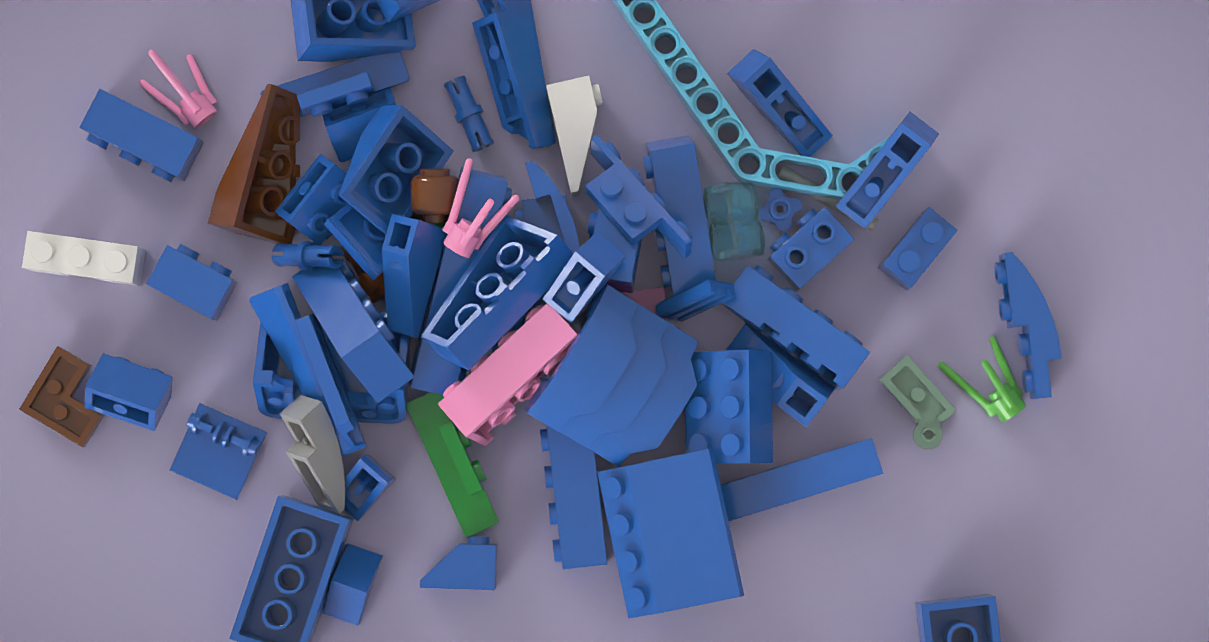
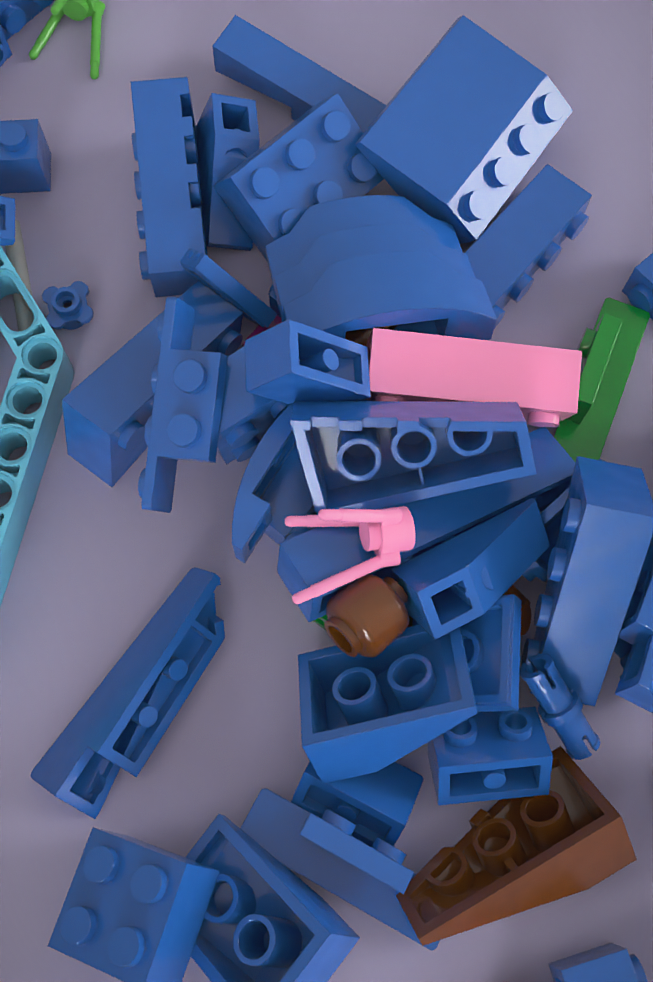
camera: 135 degrees left, 15 degrees down
(468, 113) = (242, 687): blue pin -> none
(575, 118) = (153, 562): white slope -> none
(734, 221) = (117, 318): clear light blue brick -> none
(809, 248) = (81, 245): blue brick -> none
(920, 400) = (142, 55): sand green hinge -> none

